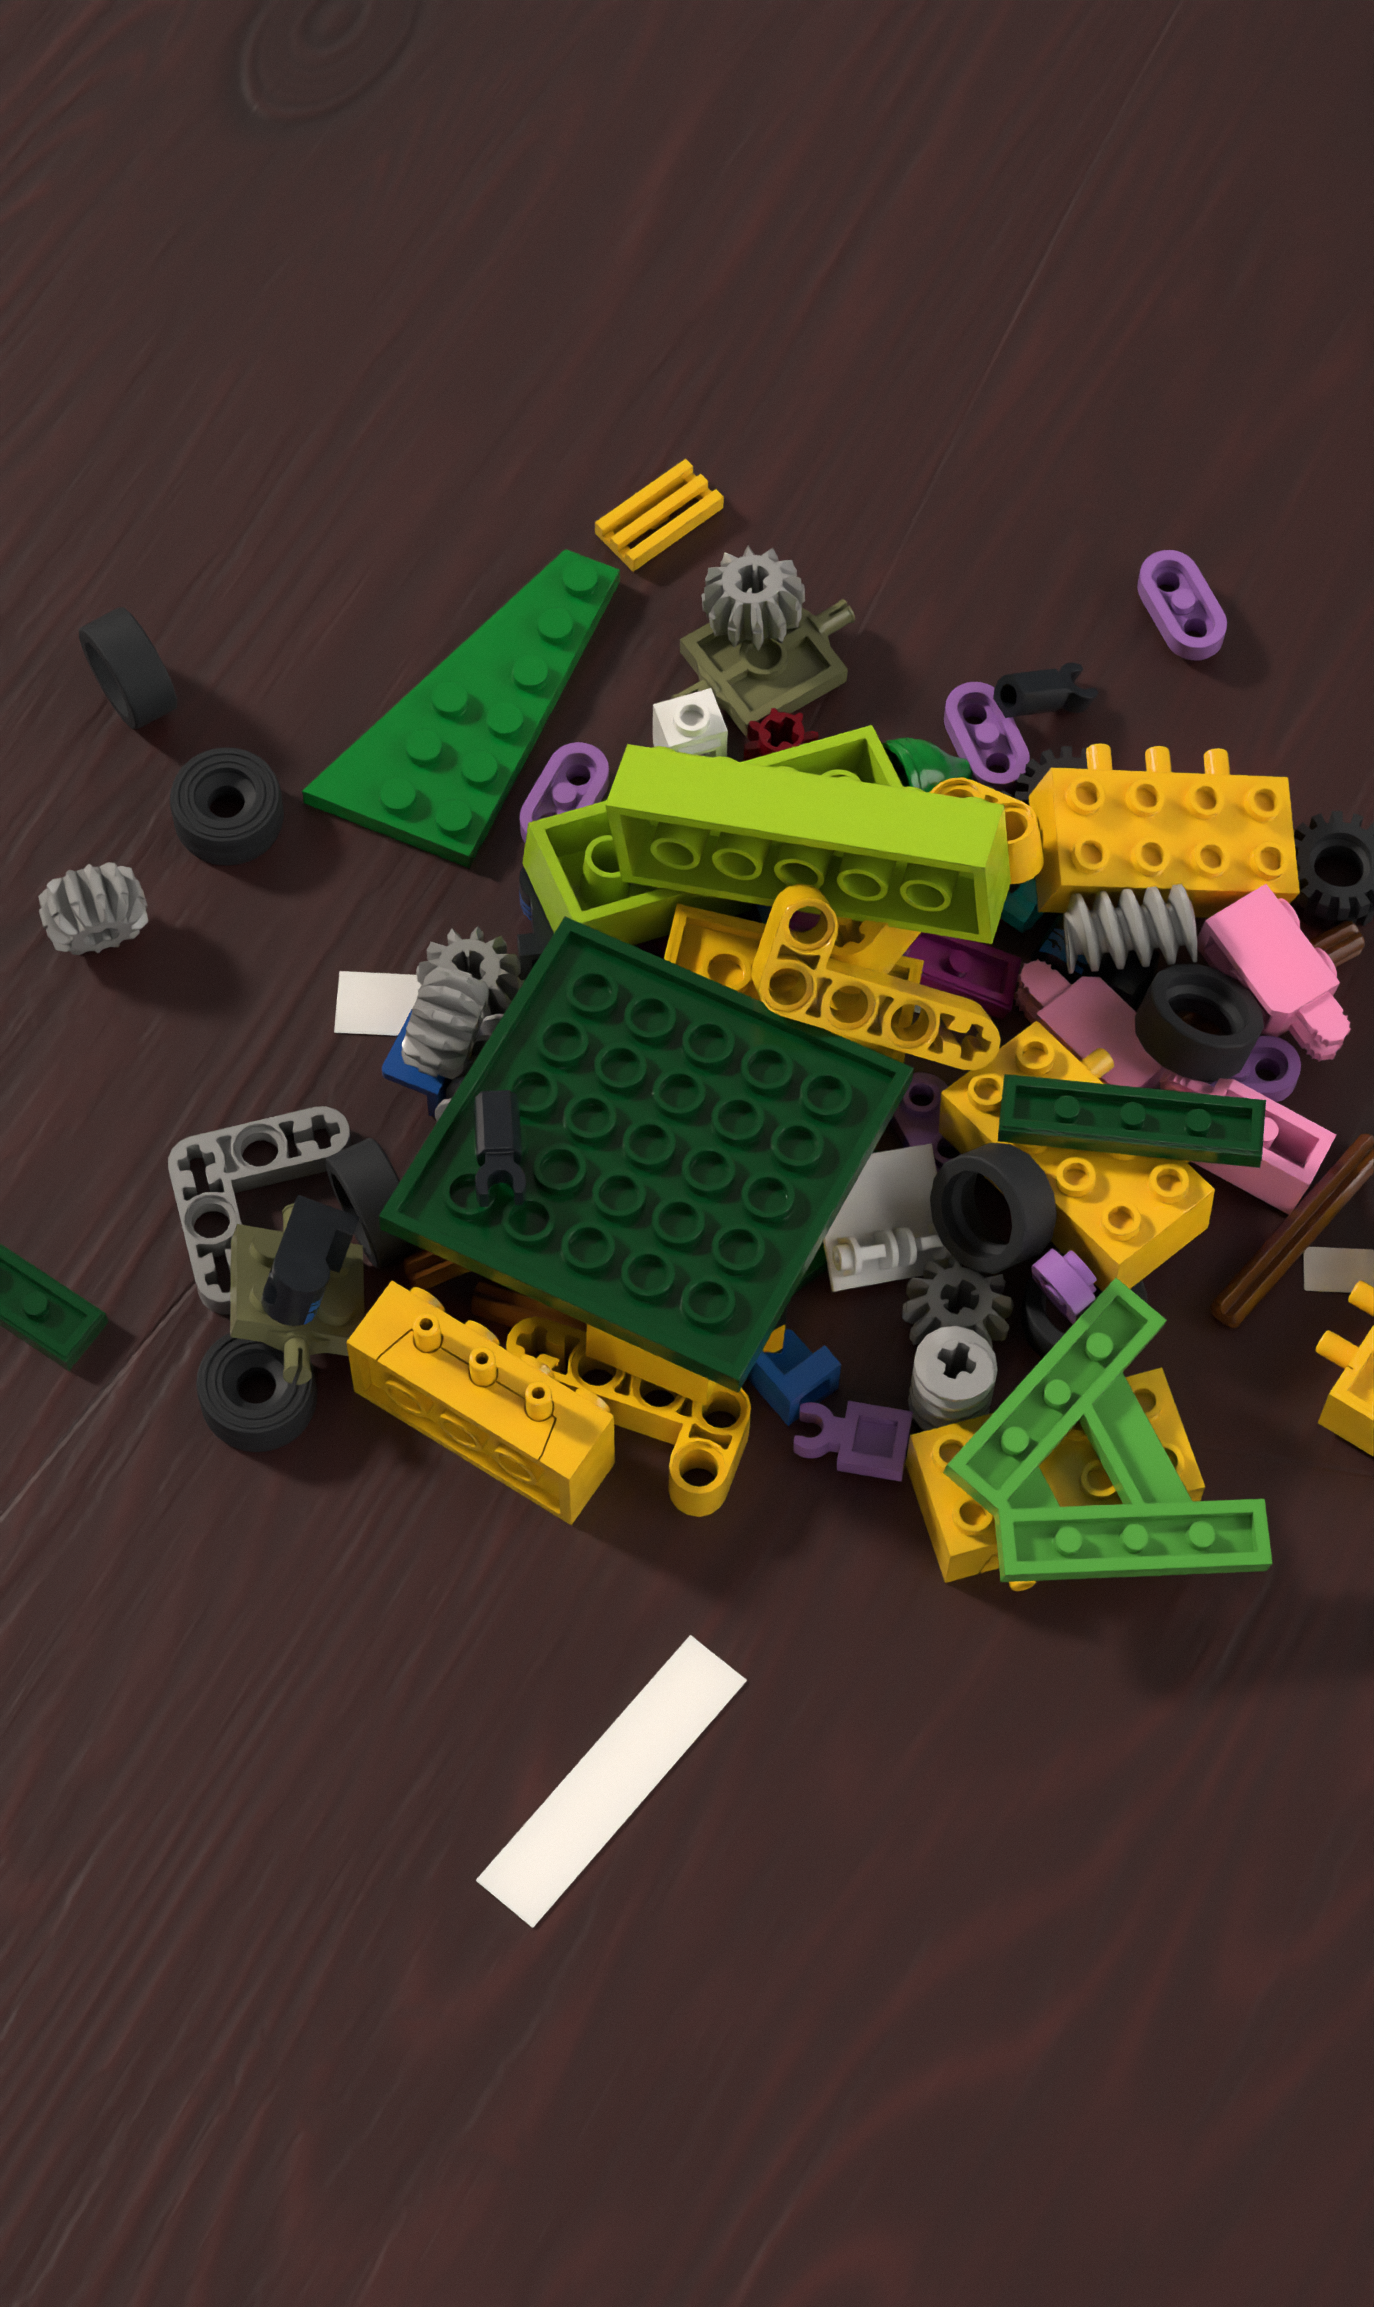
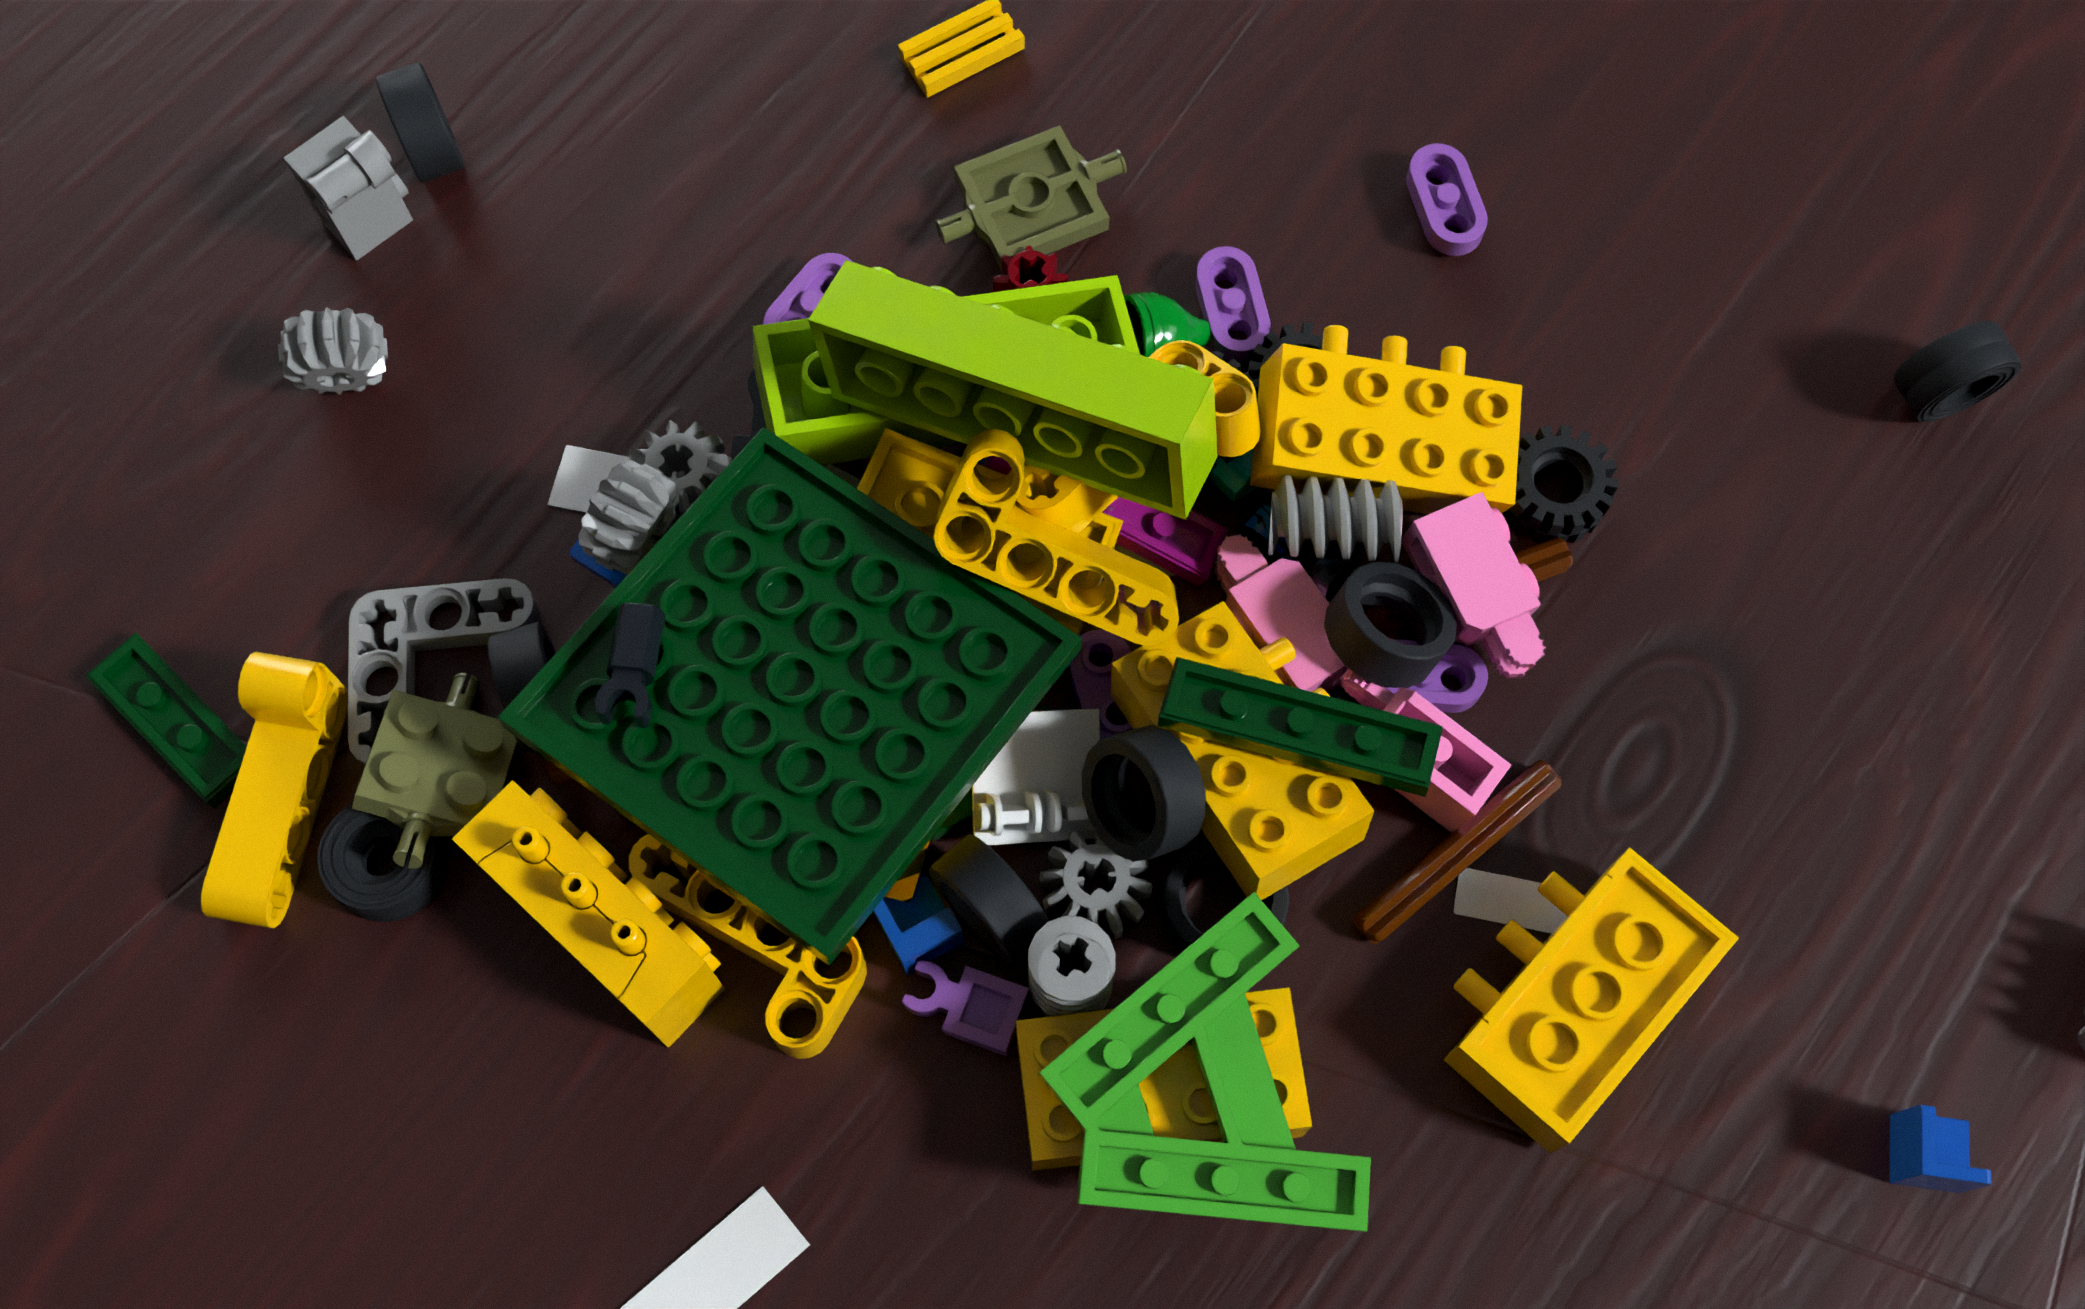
camera: 10 degrees right, 5 degrees up
(75, 742) = (351, 186): none -> light grey hinge
(137, 1335) = (278, 788): none -> yellow beam
(220, 774) = (485, 237): black tyre -> none
(310, 1248) = (432, 740): black leg -> none
(461, 736) = (728, 235): green wing -> none
(691, 725) = (945, 255): white window -> none
(753, 597) = (1027, 134): light grey gear -> none
(862, 1331) = (989, 898): none -> black tyre
(1042, 692) = (1294, 265): black bar -> none
(1065, 1283) = (1203, 887): medium lavender plate -> none

